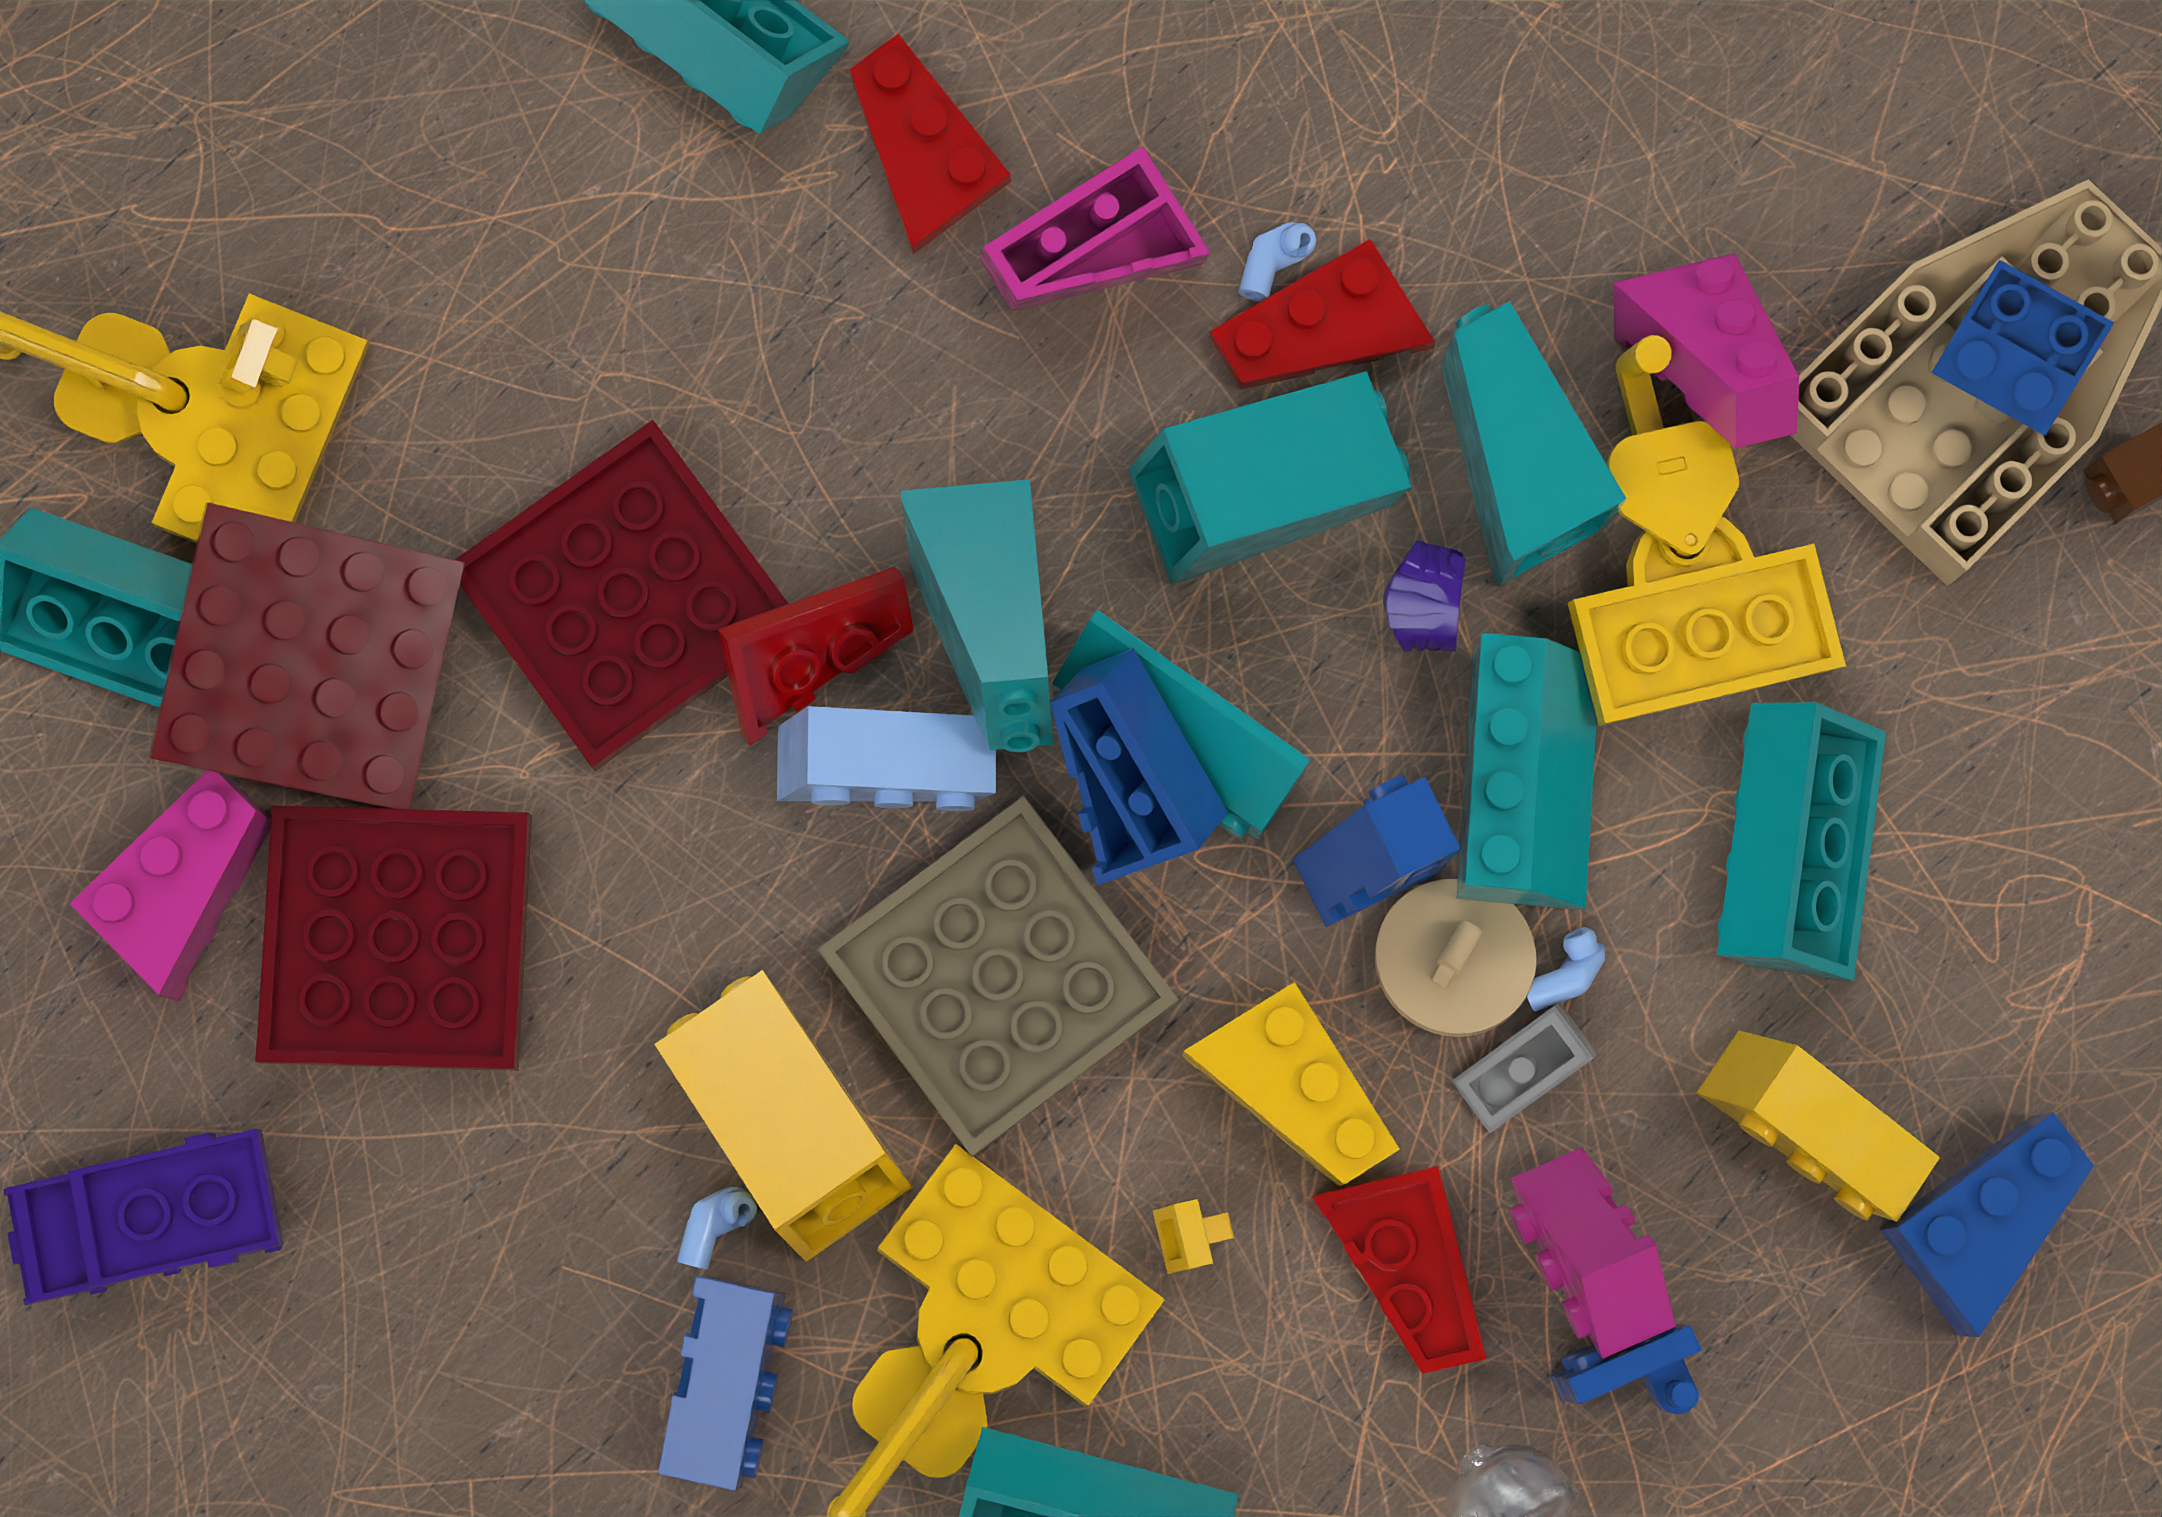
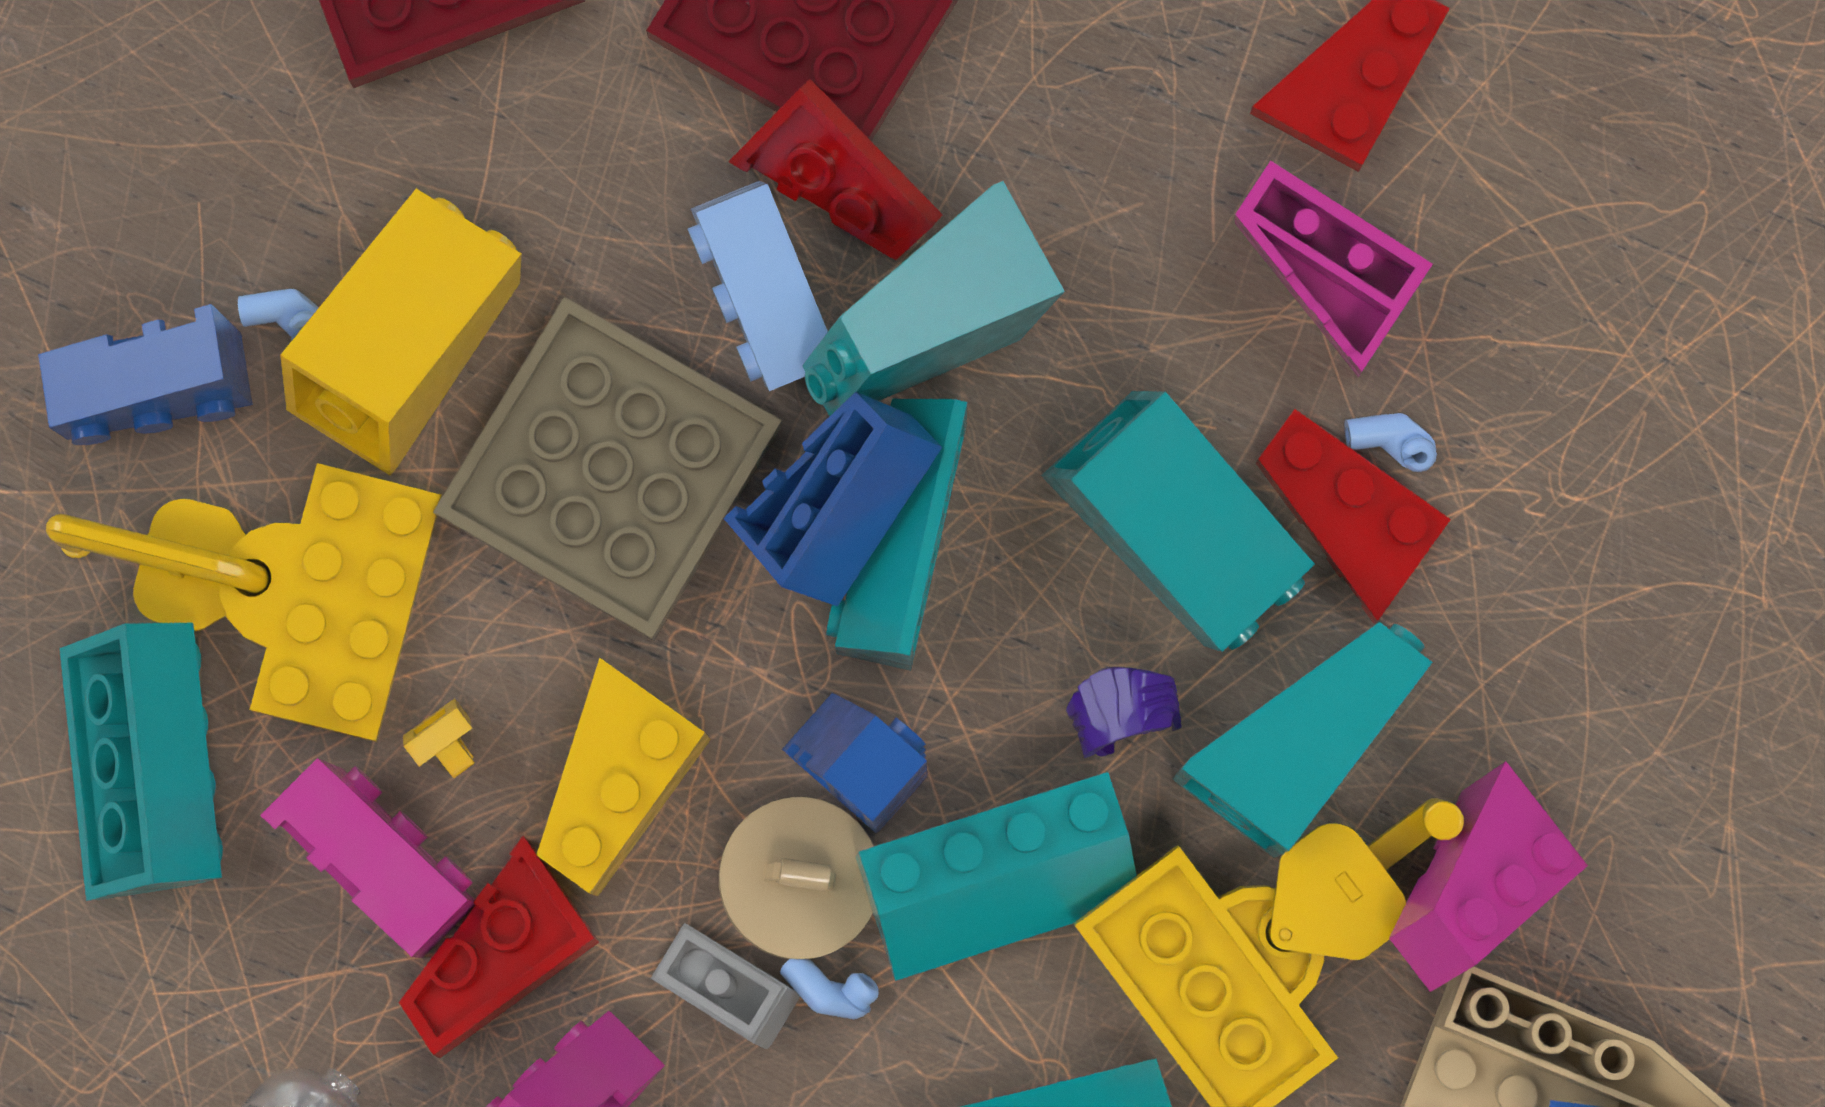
camera: 70 degrees right, 0 degrees up
(1280, 1339) = (373, 855): none -> dark pink wedge

